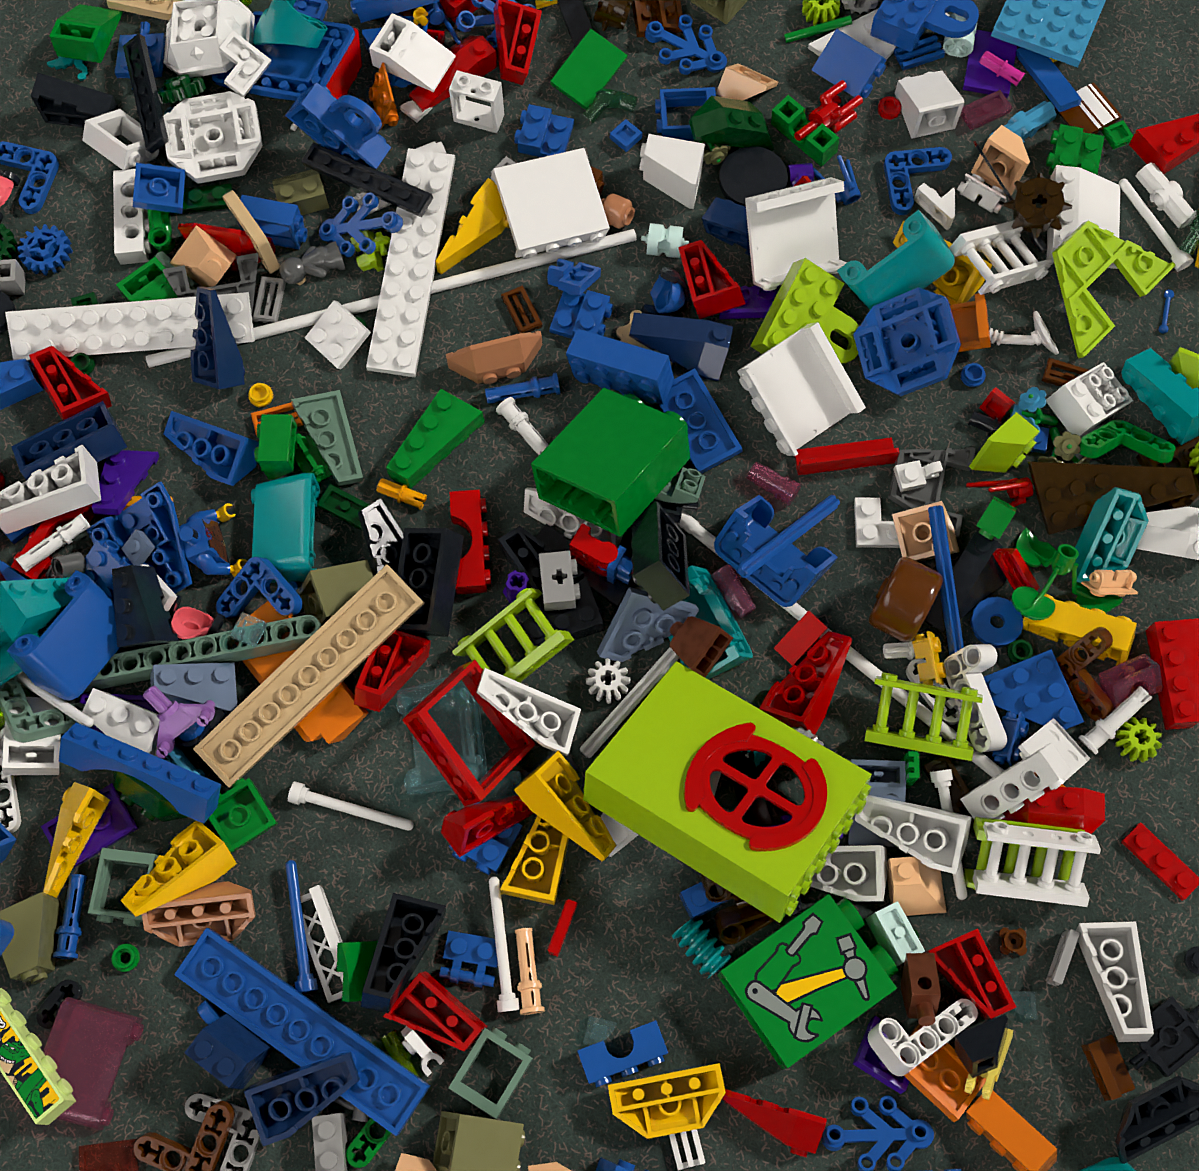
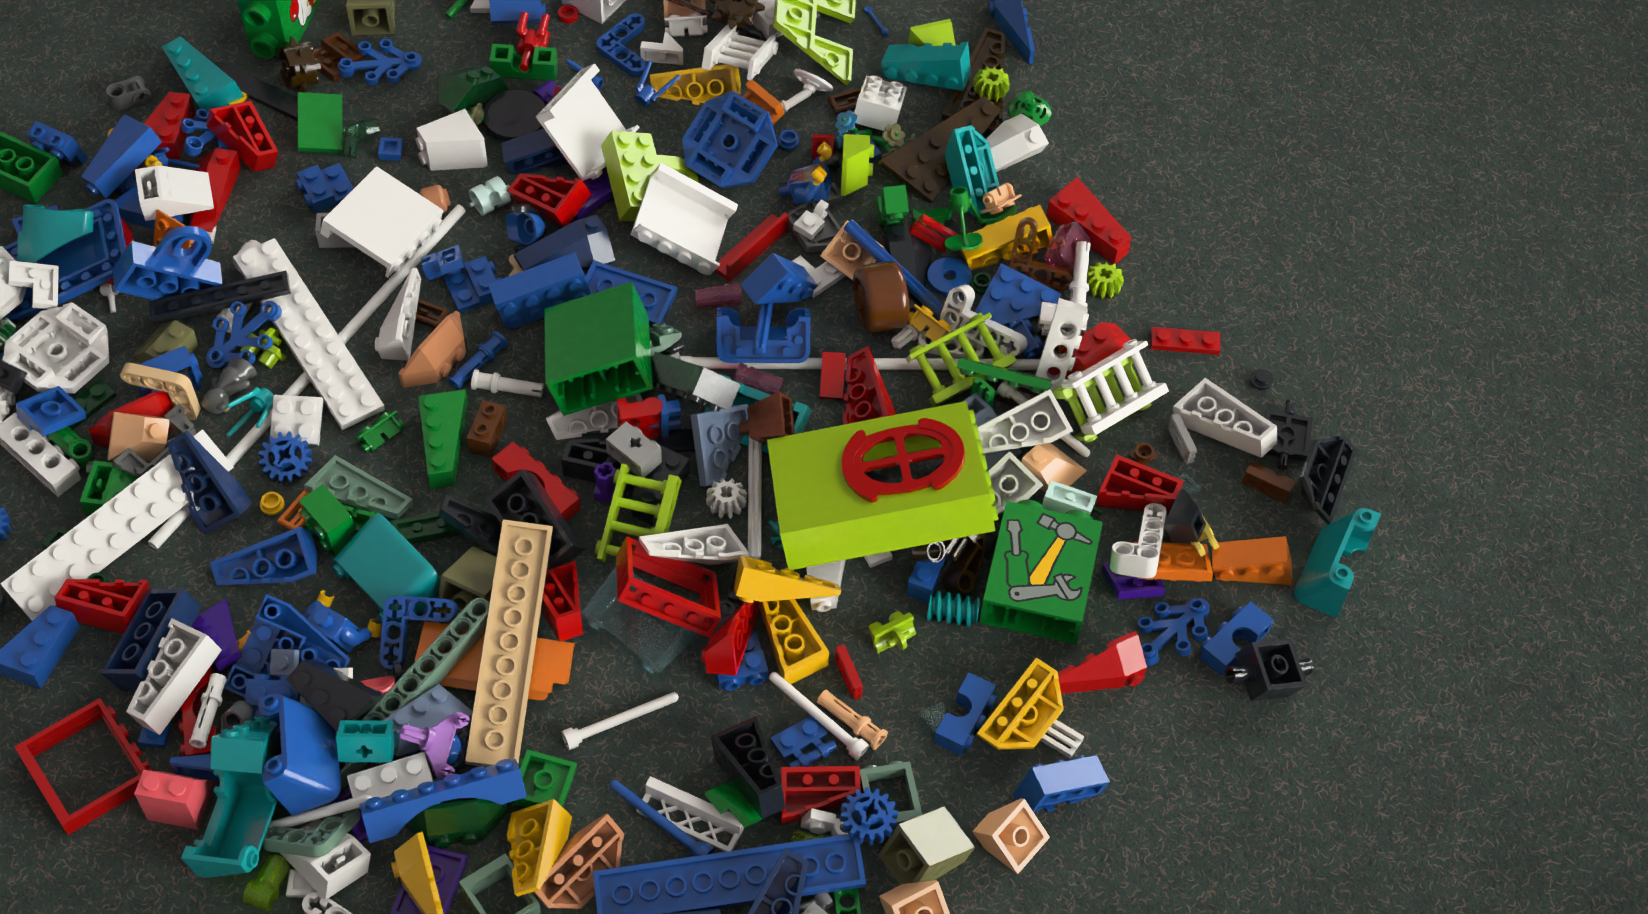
camera: 45 degrees left, 15 degrees down
(124, 672) = (365, 741): none -> teal brick
(248, 629) = (435, 643): clear light blue tile -> none
(277, 305) = (203, 422): light grey tile -> none
(290, 360) = (290, 448): none -> blue gear
(324, 297) = (260, 401): none -> teal plant
(401, 493) = (452, 489): light orange axle -> none
(402, 393) = (371, 435): none -> green hinge
(441, 1069) = (878, 824): none -> blue gear
(473, 459) = (487, 428): none -> reddish brown brick
(481, 225) = (338, 273): yellow wedge -> none
(484, 311) = (398, 327): none -> white wedge
(485, 90) = (270, 203): white window -> none
(632, 926) = (893, 633): none -> lime hips
(679, 98) = (411, 97): blue window -> none
(742, 83) = (448, 60): light nougat slope -> none
(828, 515) = (779, 282): none -> blue wedge
(884, 237) = (646, 93): none -> blue plant
(908, 267) = (685, 98): teal windscreen -> none
(923, 998) = (1117, 515): copper torso -> none
(947, 772) = (993, 373): none -> green plate
(950, 434) = (810, 182): none -> torso
(1016, 488) = (887, 181): red plant -> none
(1122, 432) = (916, 111): green beam -> none

